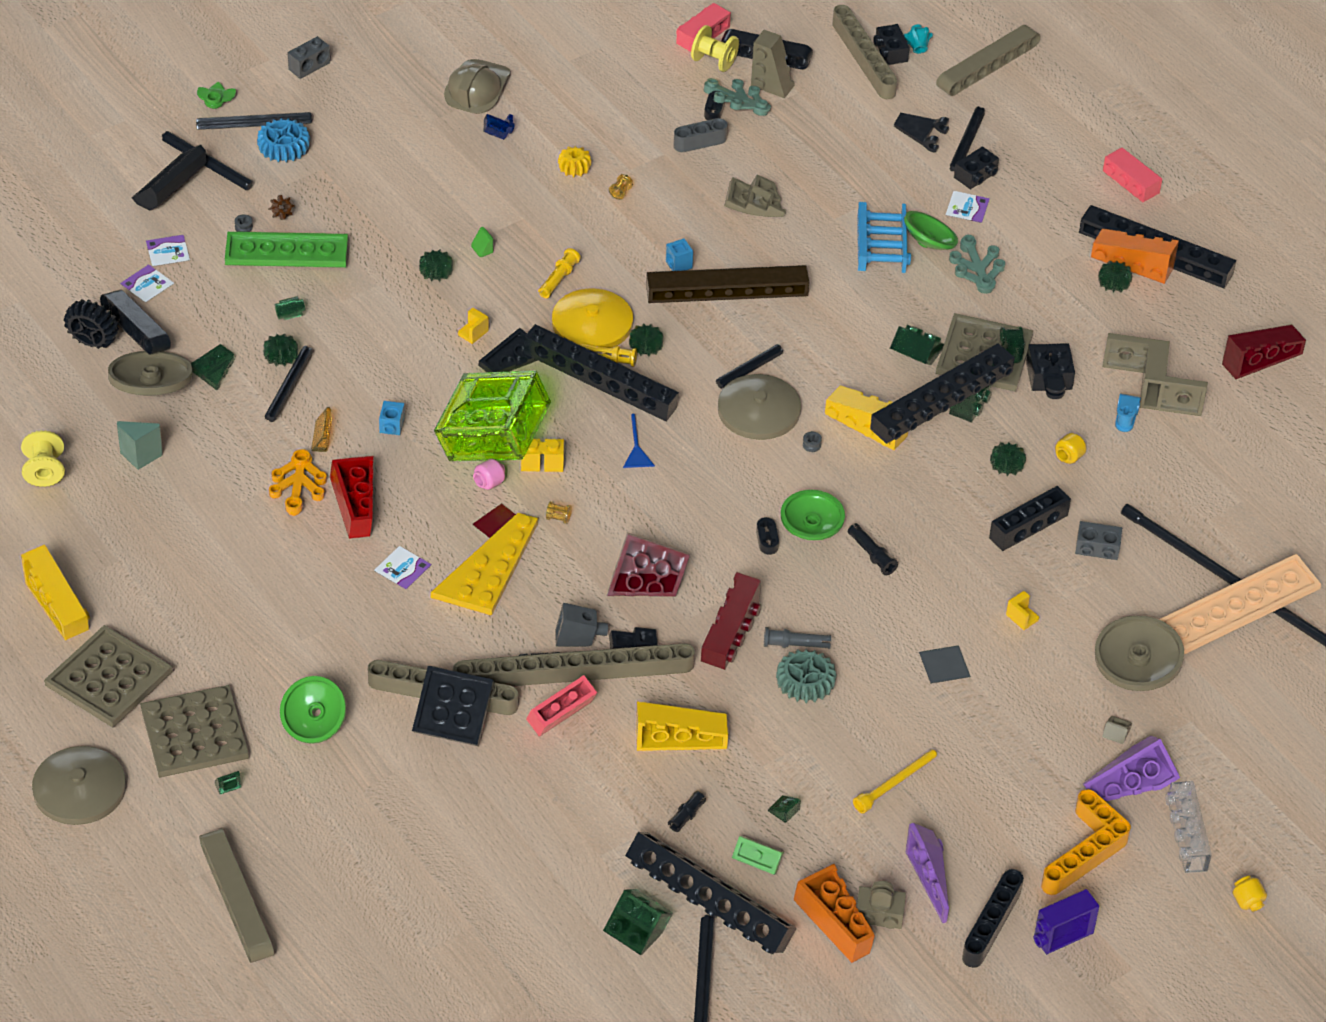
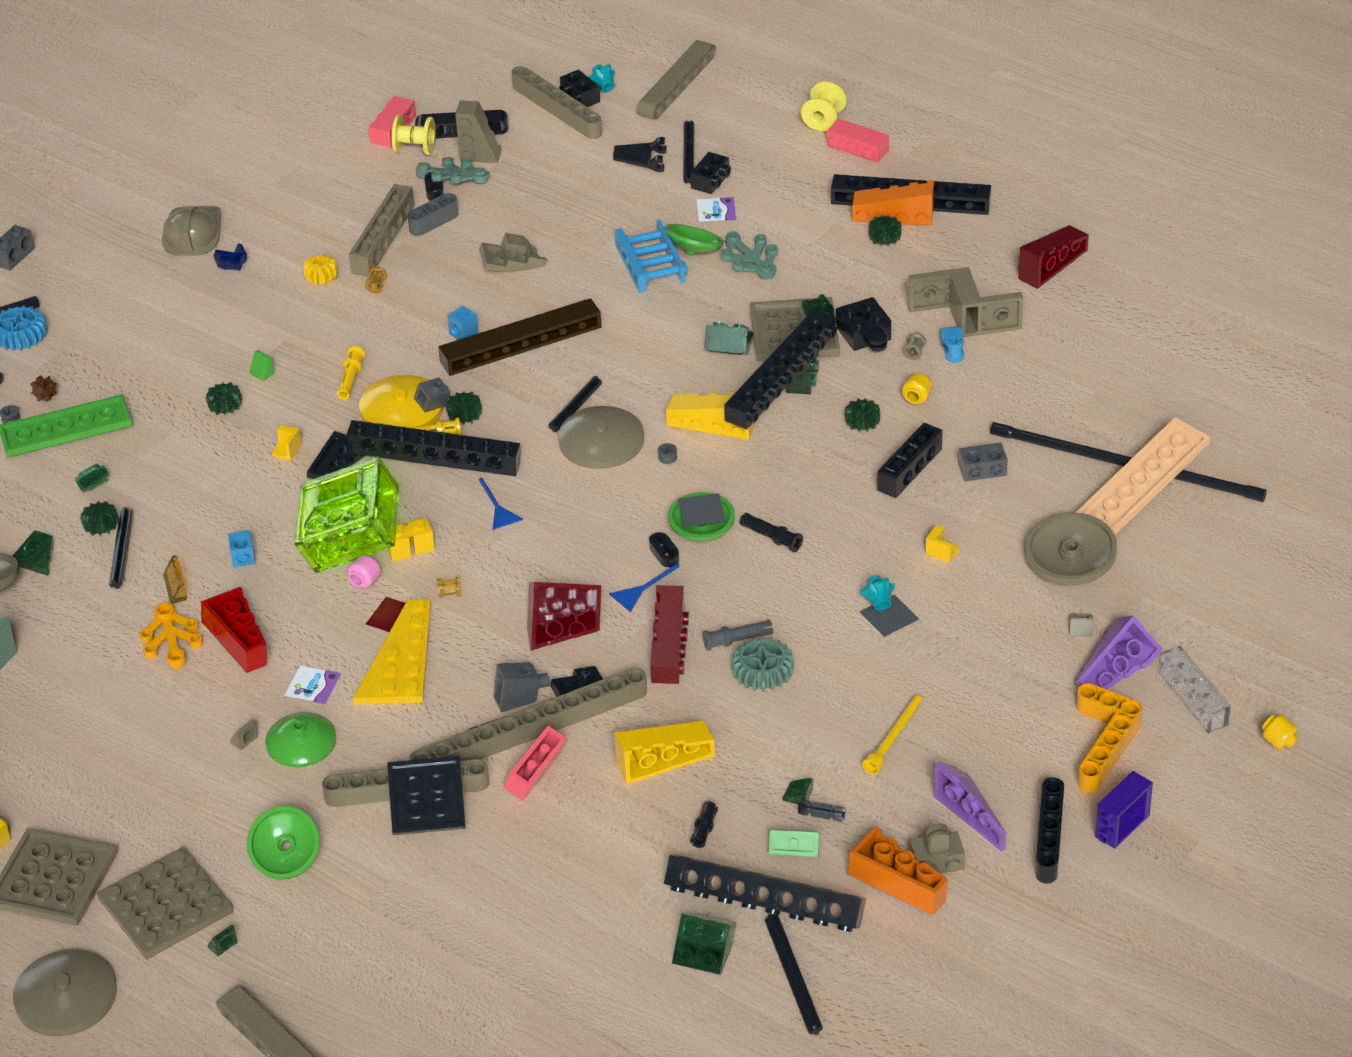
camera: 15 degrees left, 5 degrees down
(323, 597) = (245, 735): none -> dark tan slope
(370, 616) = (300, 739): none -> bright green dish
(620, 319) = (432, 394): none -> dark grey brick
(645, 137) = (381, 229): none -> dark tan brick
(716, 572) = (629, 597): none -> blue piece
(797, 832) = (821, 810): none -> black axle
(814, 508) = (701, 510): none -> dark grey sticker
(941, 640) = (878, 592): none -> teal rock
(1089, 403) = (909, 347): none -> dark tan bush
(1107, 135) = (822, 108): none -> light yellow hose

